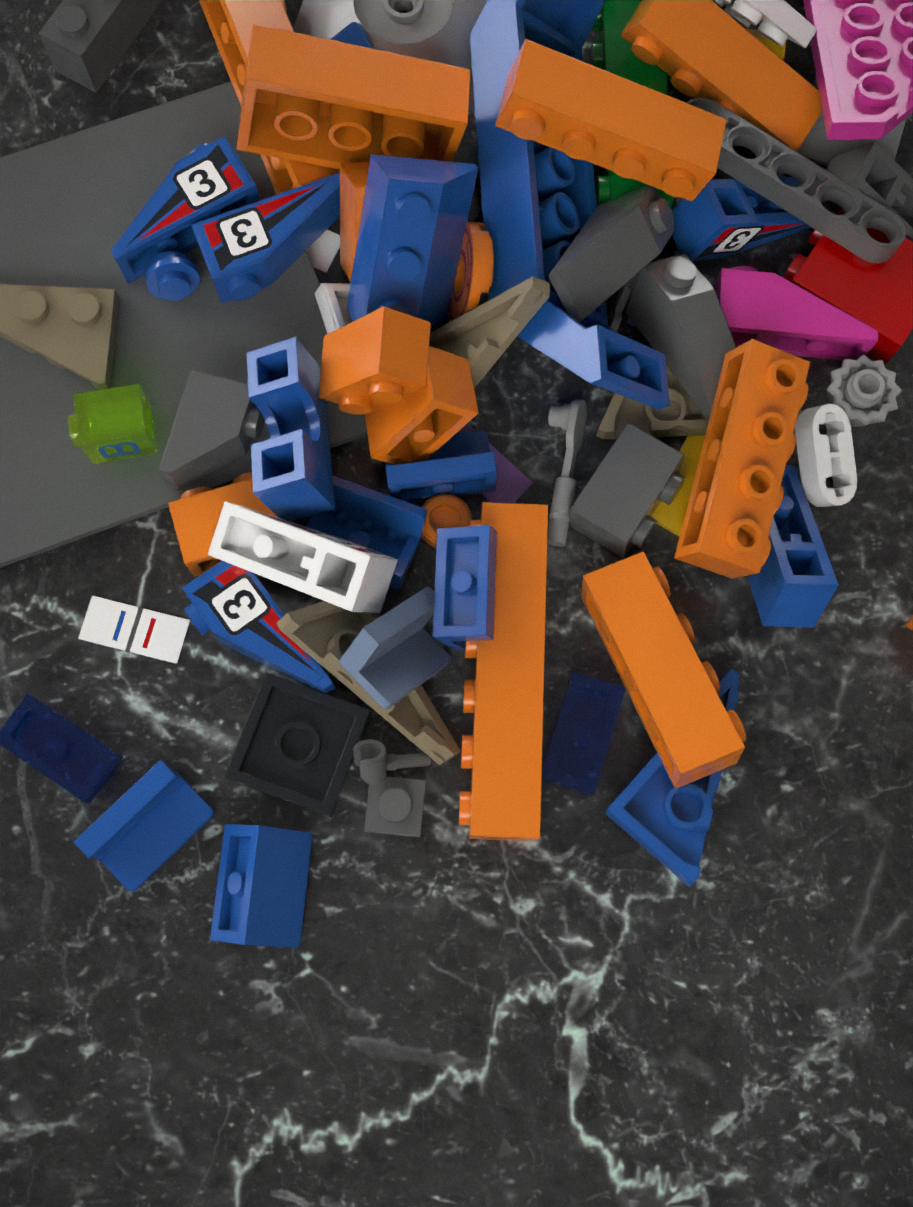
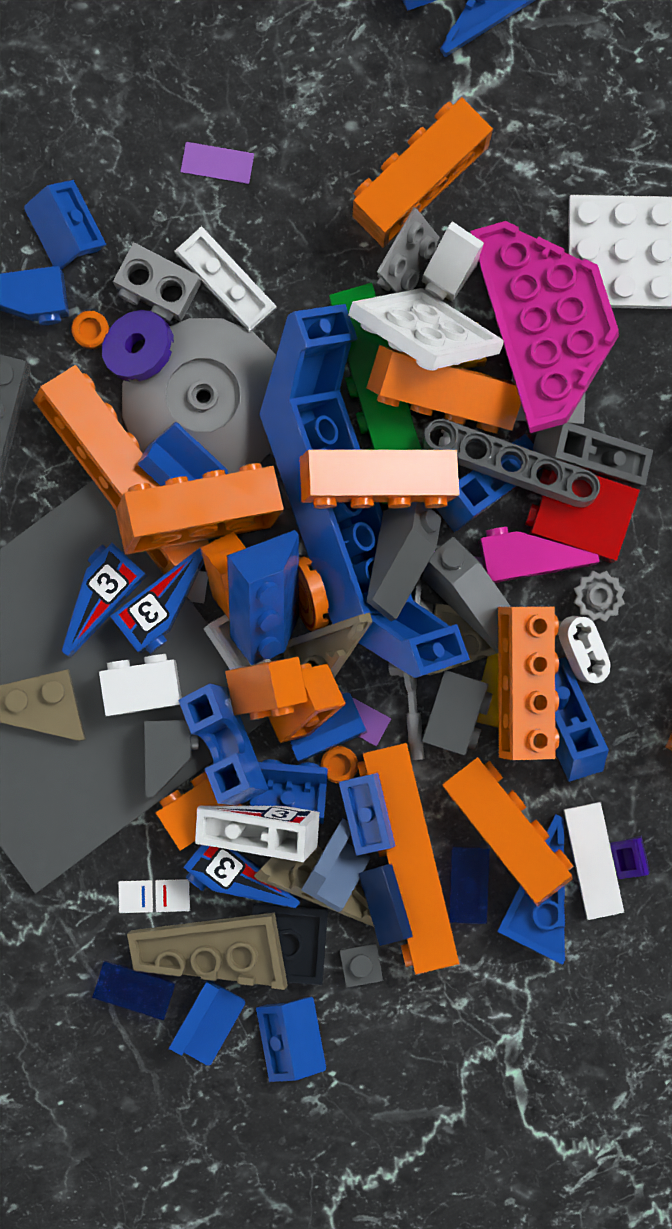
camera: 15 degrees left, 10 degrees up
(113, 424) = (100, 768): clear neon green brick -> none
(172, 276) = (104, 649): blue plate -> none
(201, 333) = (140, 687): none -> white brick
(203, 722) = (224, 949): none -> dark tan wing
(374, 762) = (345, 940): dark grey hand -> none
(455, 721) = (385, 904): none -> dark blue tile
(770, 753) = (593, 861): none -> white tile
(824, 761) = (630, 858): none -> dark purple slope

